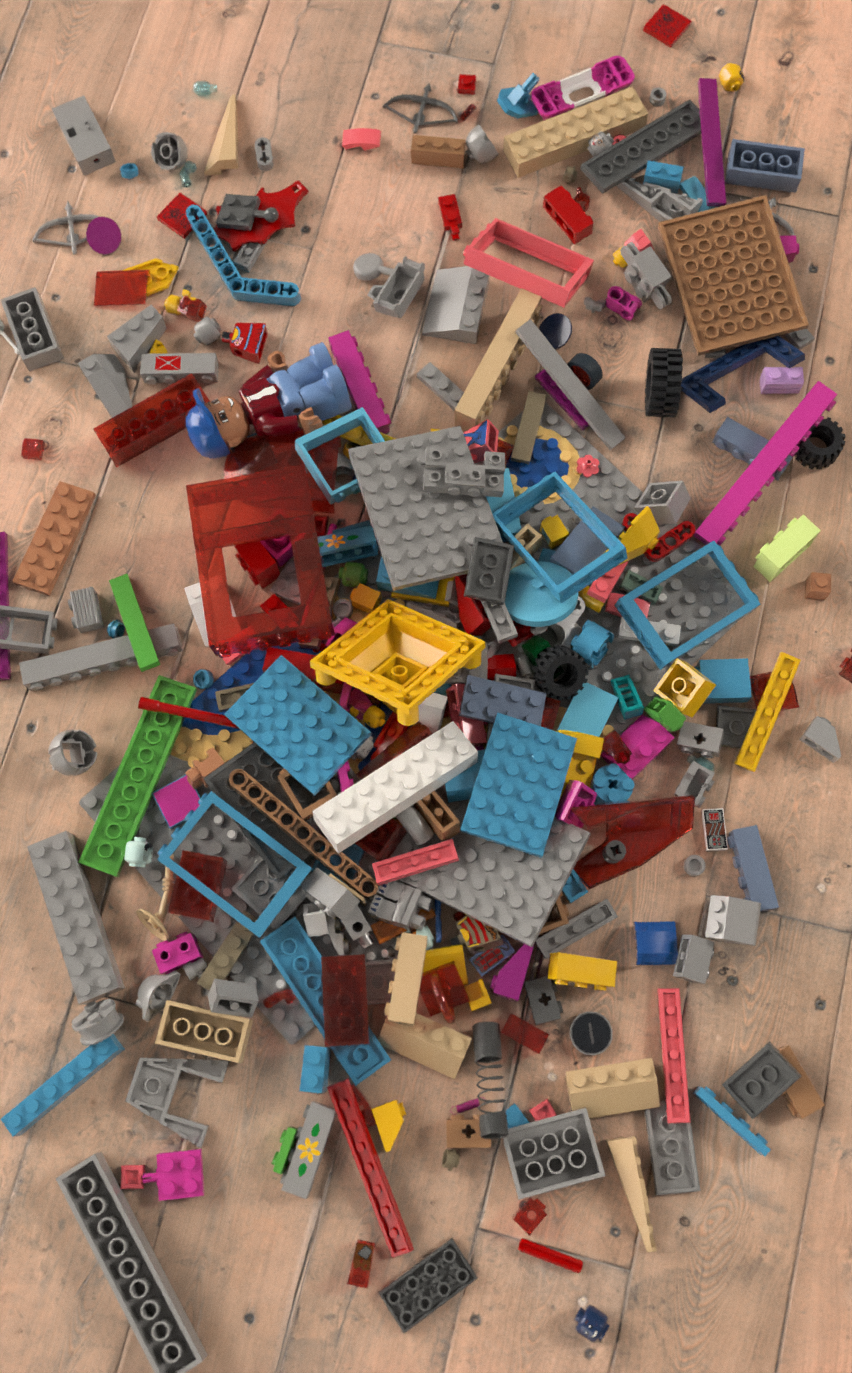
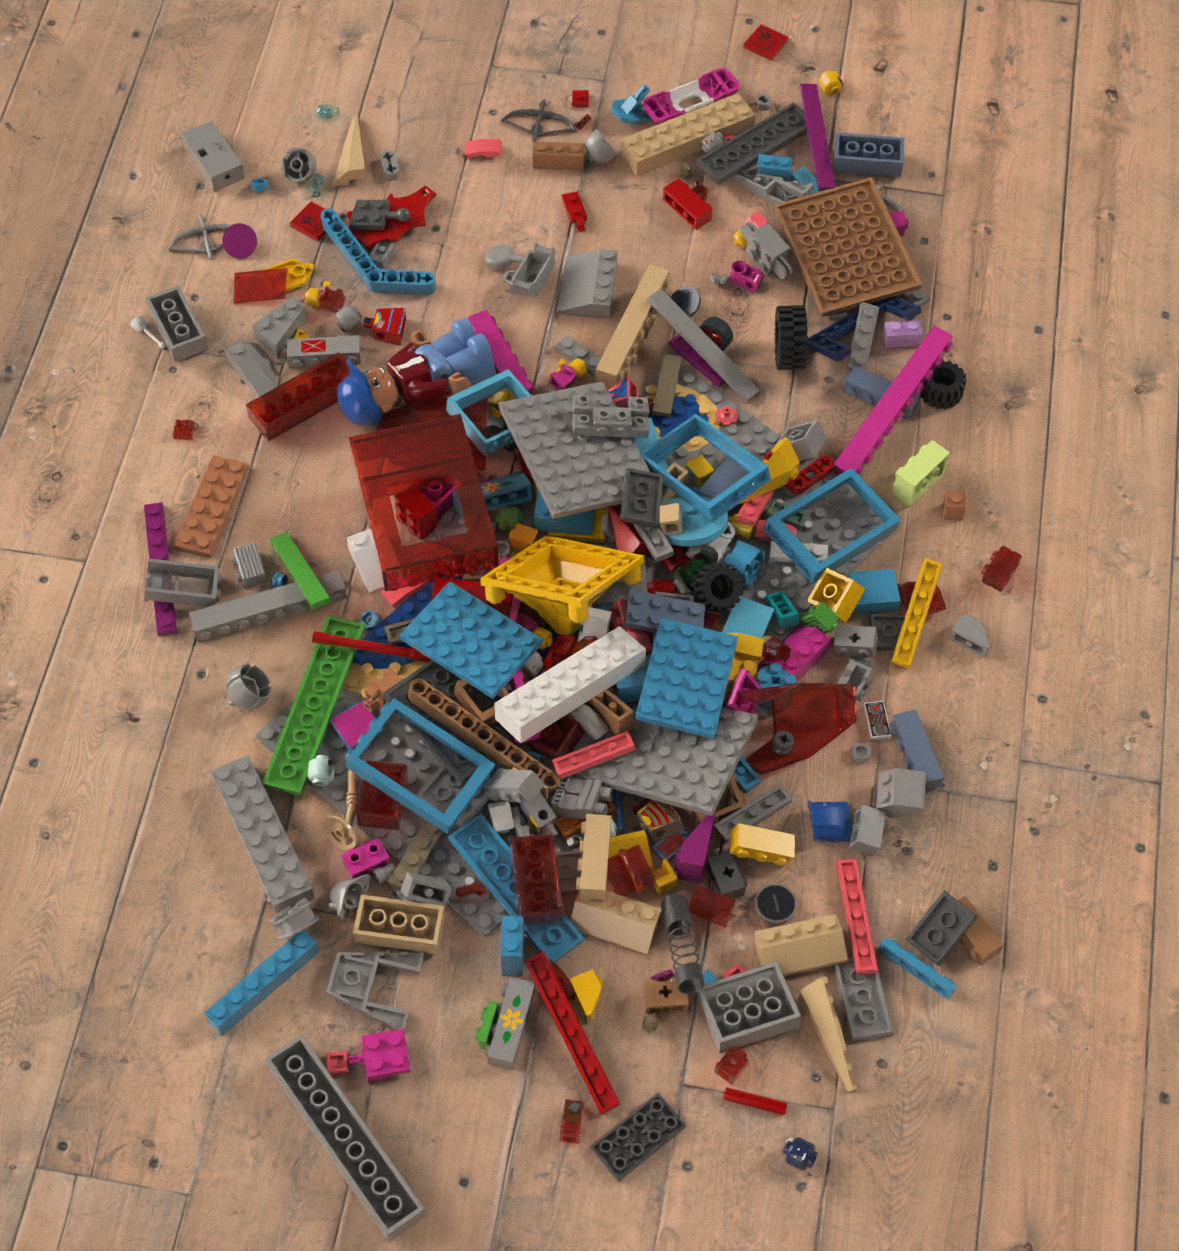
camera: 10 degrees left, 15 degrees down
(425, 410) = (564, 377): none -> dark pink piece
(518, 597) = (671, 519): none -> tan brick
(534, 246) = (673, 236): coral window -> none
(739, 382) = (863, 336): none -> light grey plate

